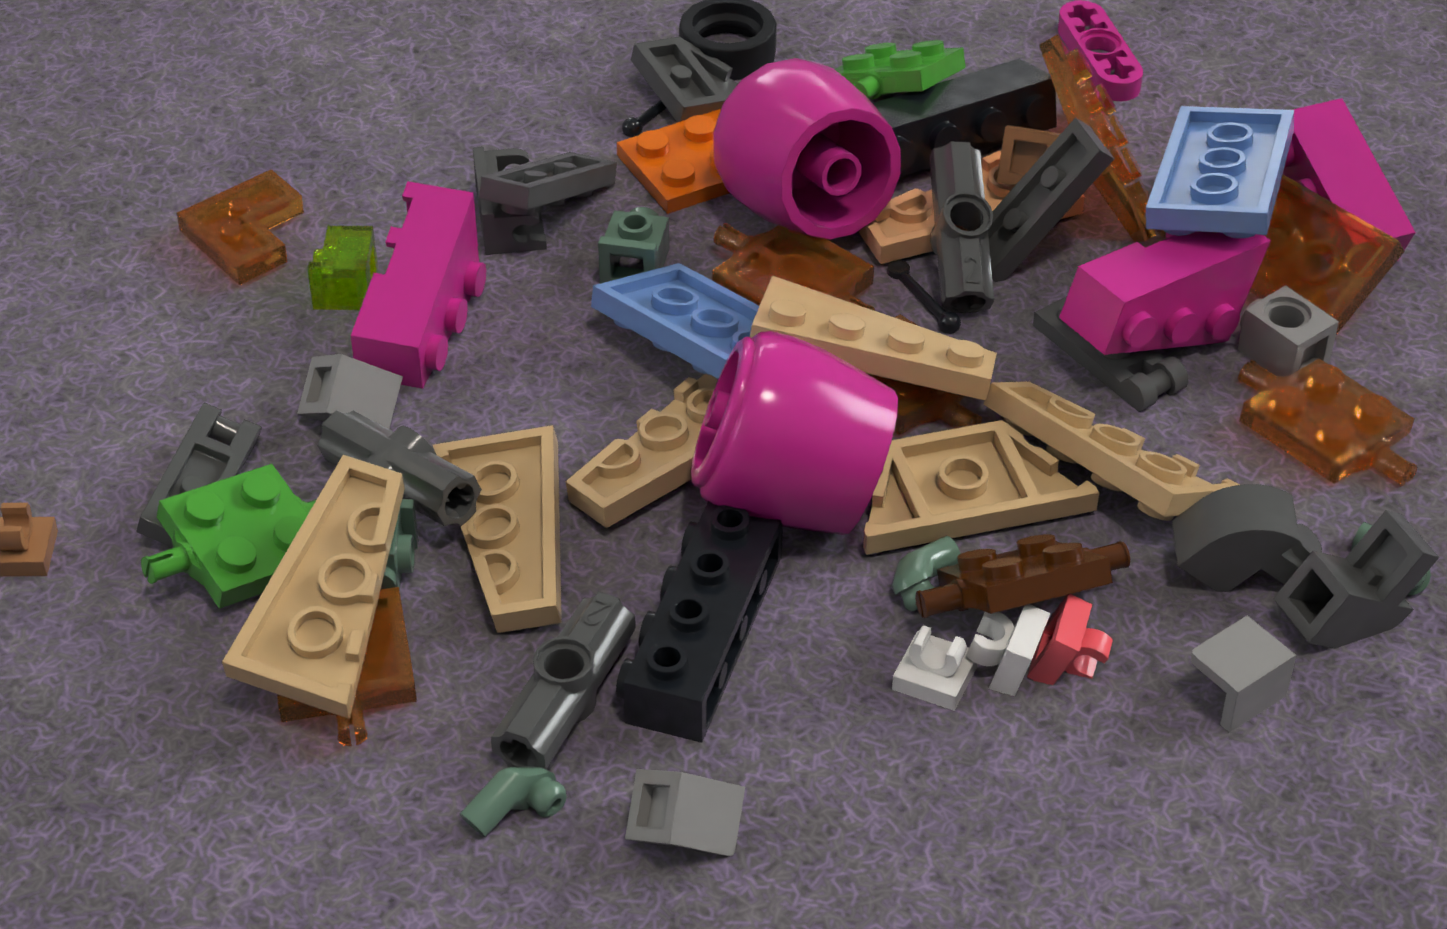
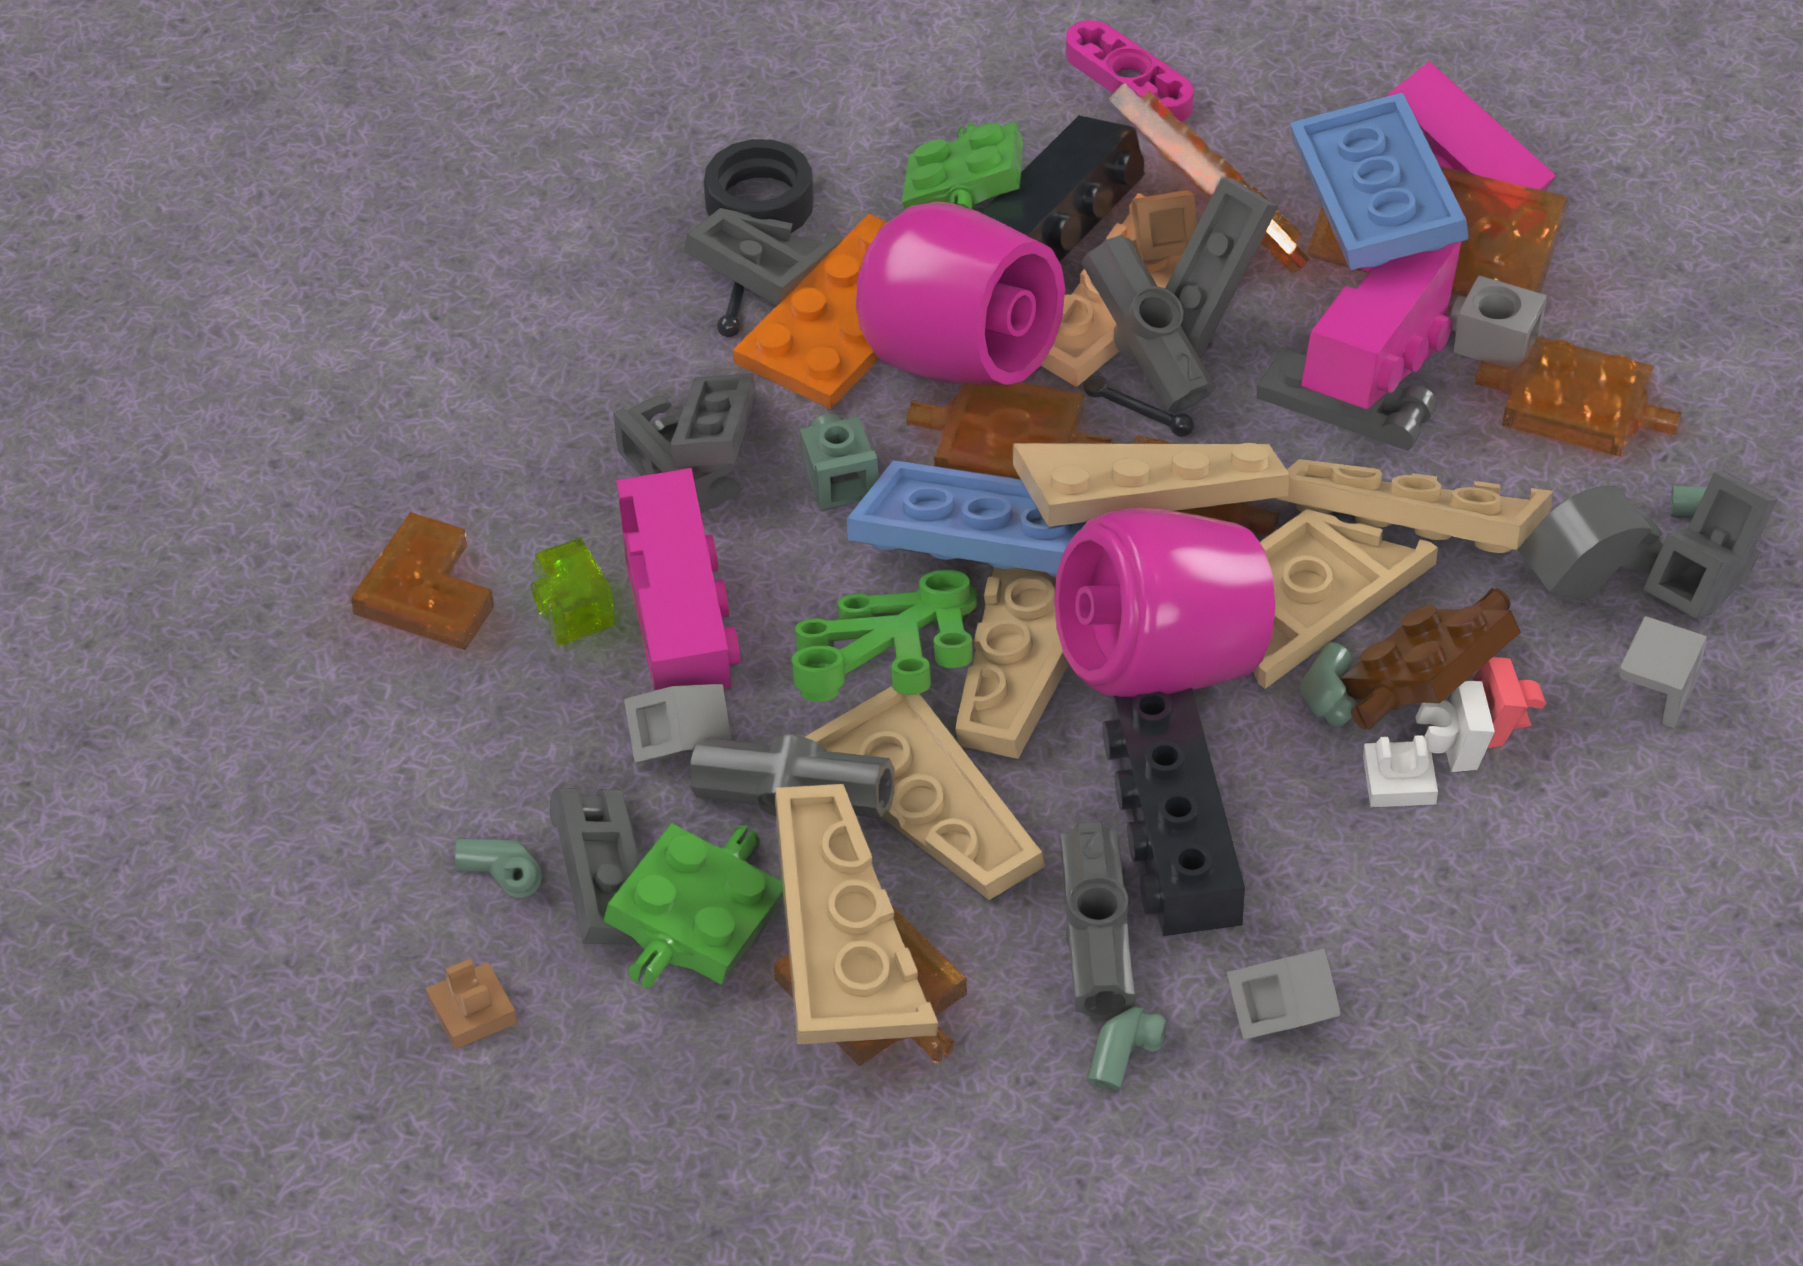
camera: 25 degrees left, 5 degrees up
(135, 446) = (505, 861): none -> sand green arm
(636, 382) = (941, 599): none -> bright green plant

